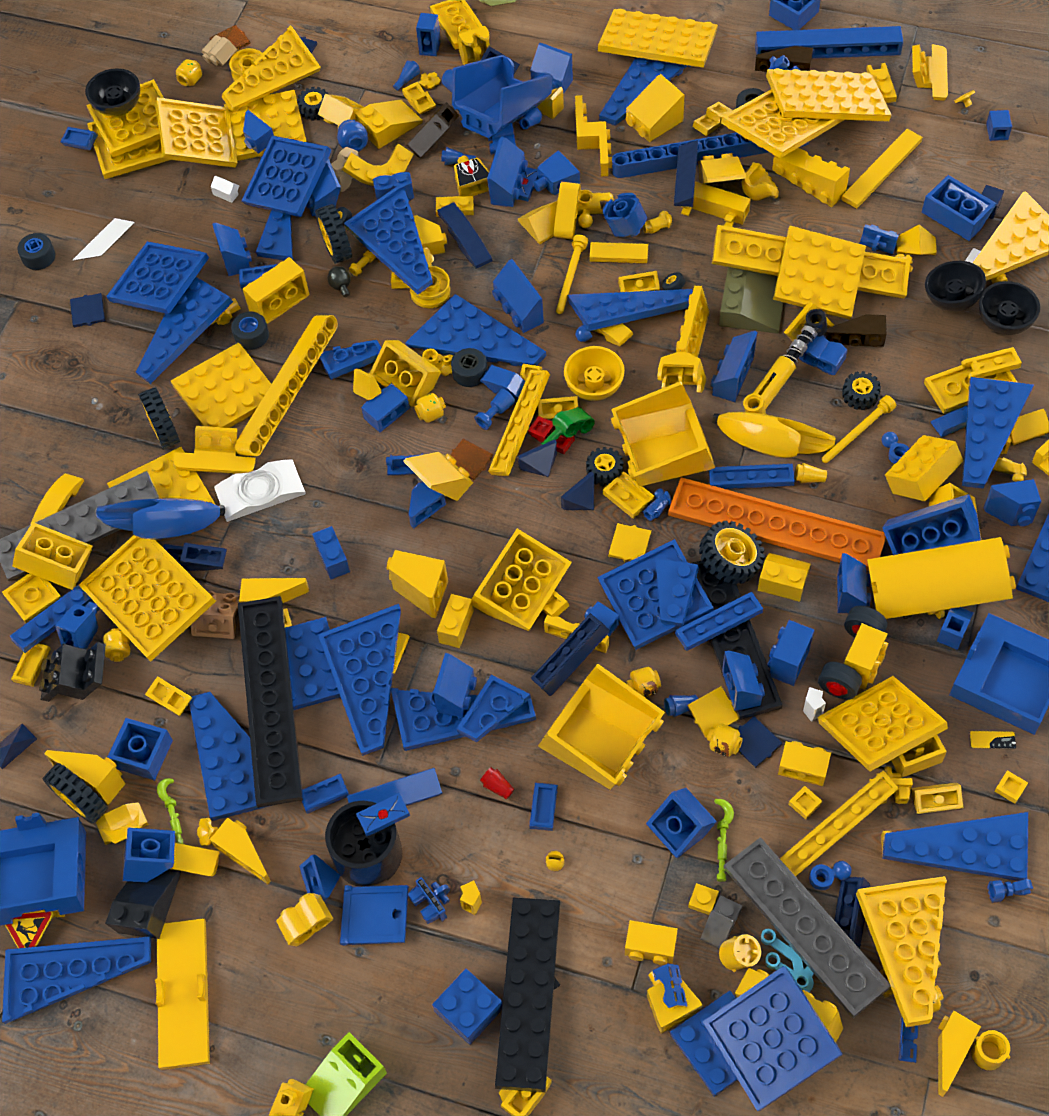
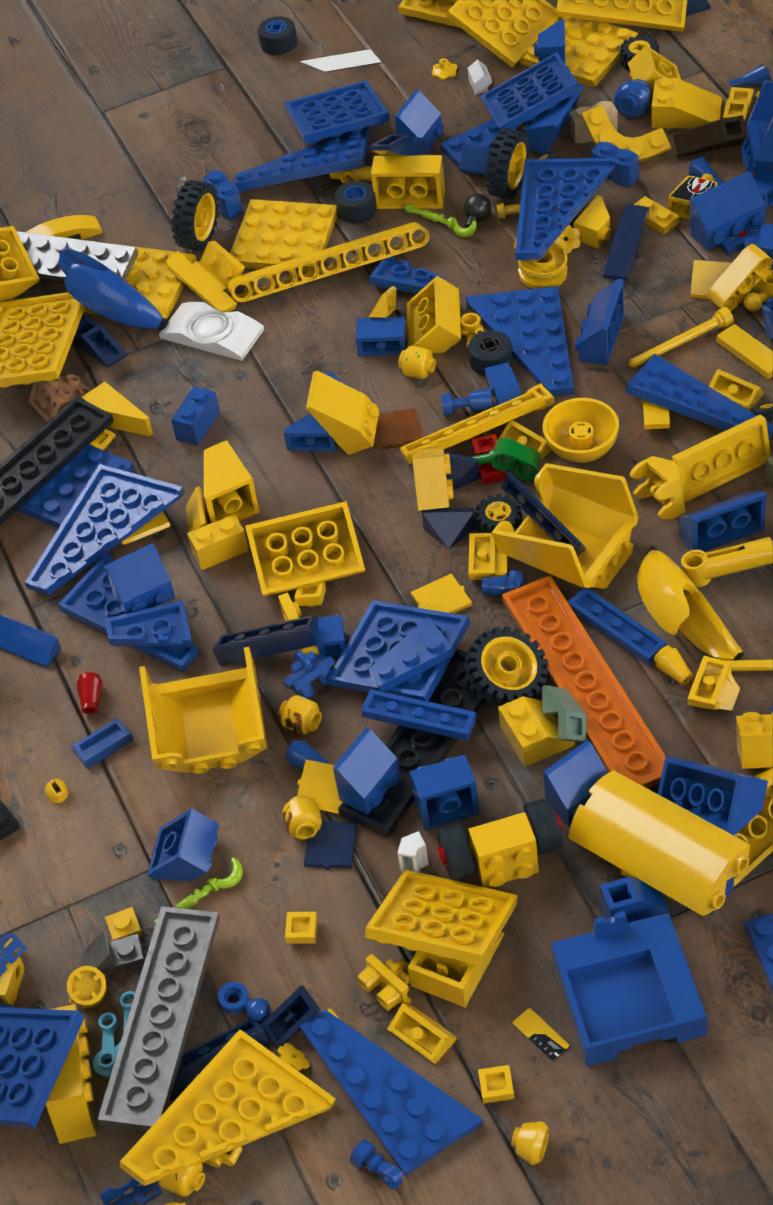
camera: 50 degrees right, 10 degrees down
(87, 310) = (262, 106): dark blue piece -> none
(137, 384) = (228, 194): none -> blue brick
(189, 199) = (444, 70): none -> yellow plant
(253, 269) = (401, 145): none -> dark blue slope
(303, 244) = (474, 159): none -> blue slope
(333, 299) = (451, 222): none -> lime piece
(418, 616) = (196, 510): none -> yellow slope
(548, 473) = (430, 476): none -> yellow brick
(583, 334) = (624, 398): blue hinge -> none
(620, 653) = (305, 670): none -> blue hips
(639, 443) = (540, 513): none -> dark blue slope
(650, 942) = (38, 916): yellow brick -> none
(785, 547) = (570, 715): none -> sand green slope
(804, 763) = (342, 895): yellow brick -> none
(839, 823) = (299, 966): yellow tile -> none
(843, 469) = (714, 686): none -> yellow slope
(868, 855) = (289, 1016): none -> dark blue slope
(893, 877) = (293, 1057): none -> yellow plant

